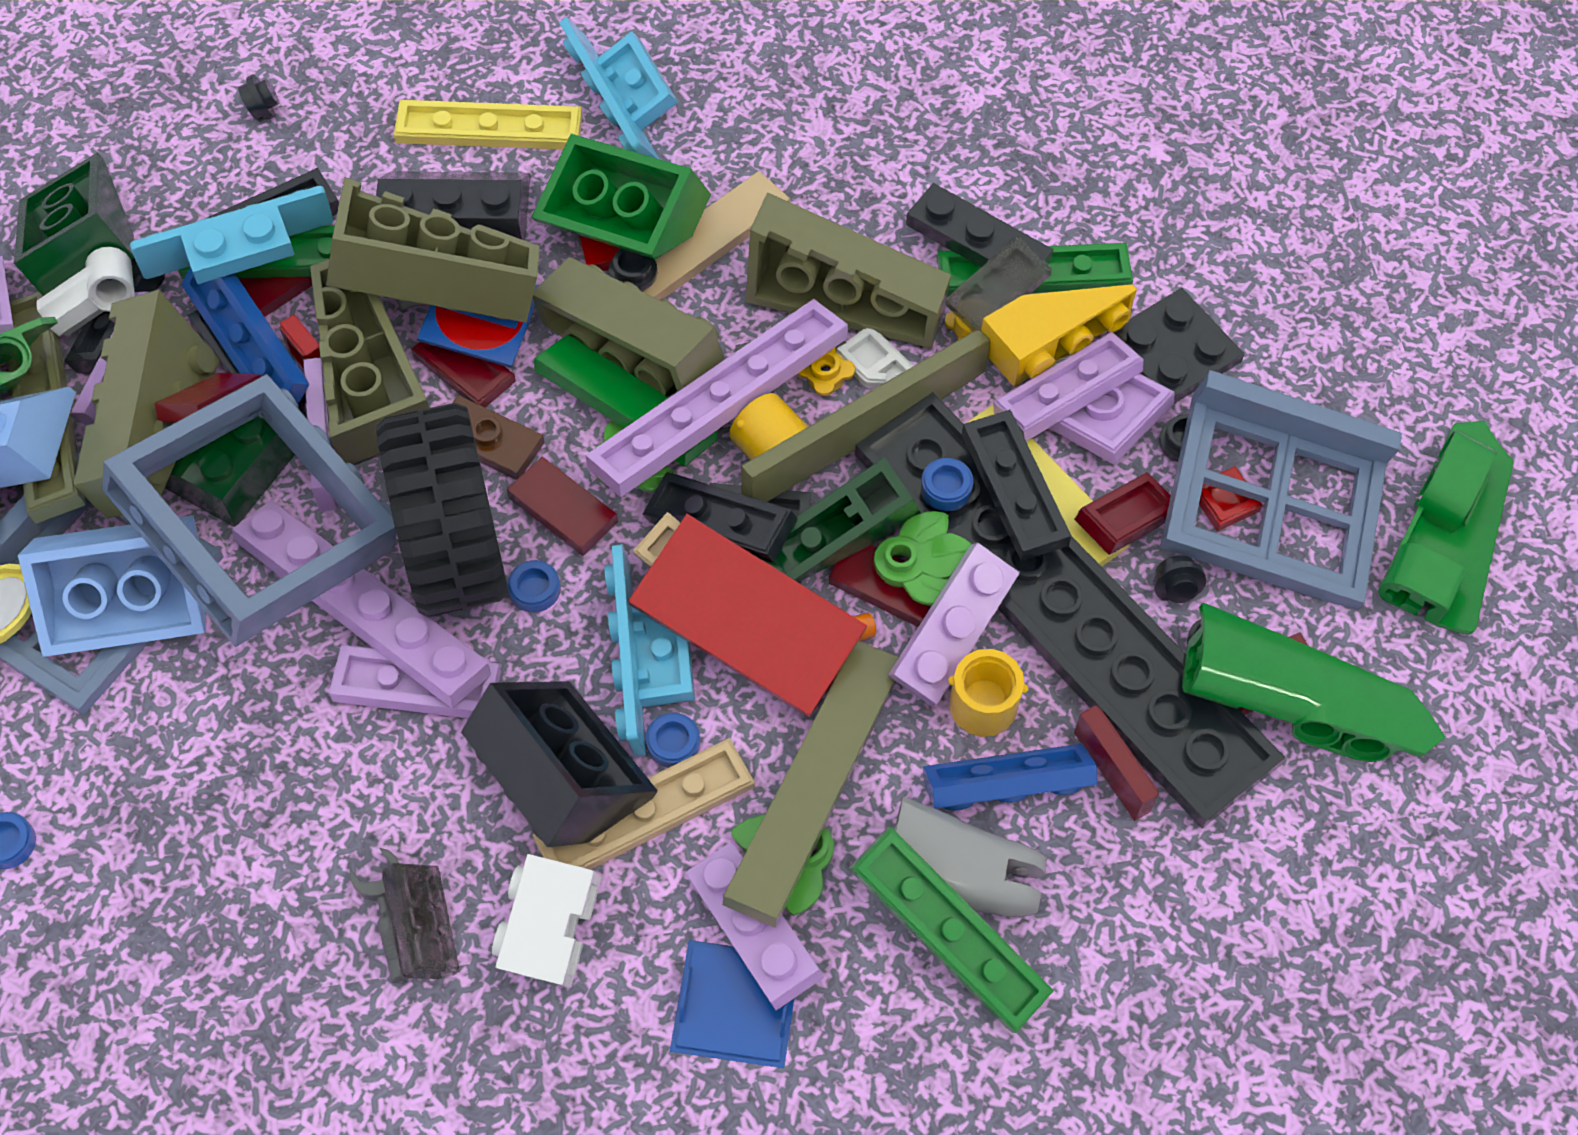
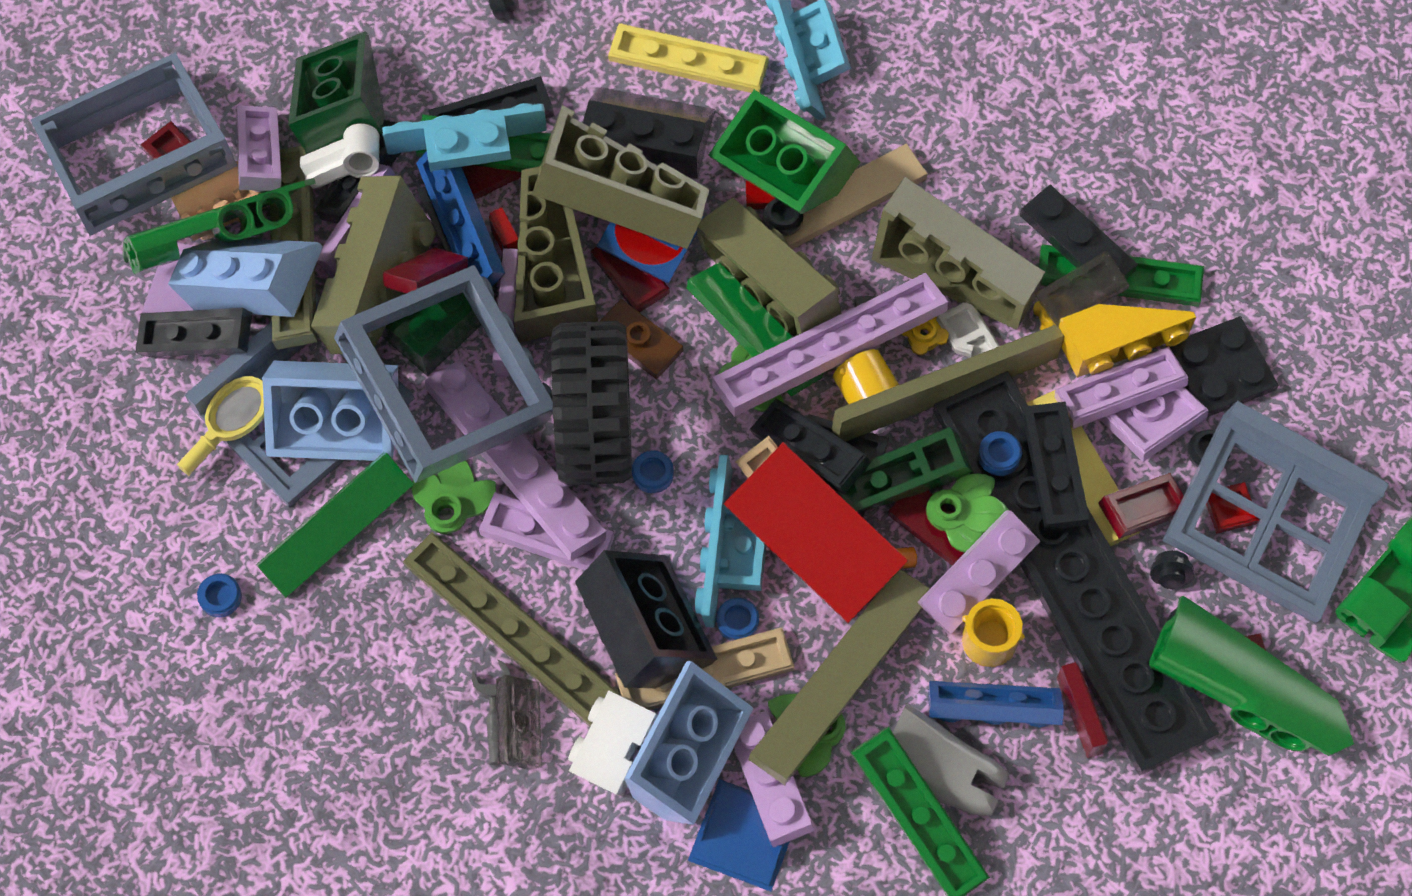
camera: 15 degrees right, 5 degrees up
(142, 724) = (334, 524): none -> green tile
(288, 653) = (454, 490): none -> bright green plate
(385, 805) = (507, 626): none -> olive tile
(562, 505) = (687, 409): dark red tile -> none
(641, 905) = (687, 746): none -> light blue slope

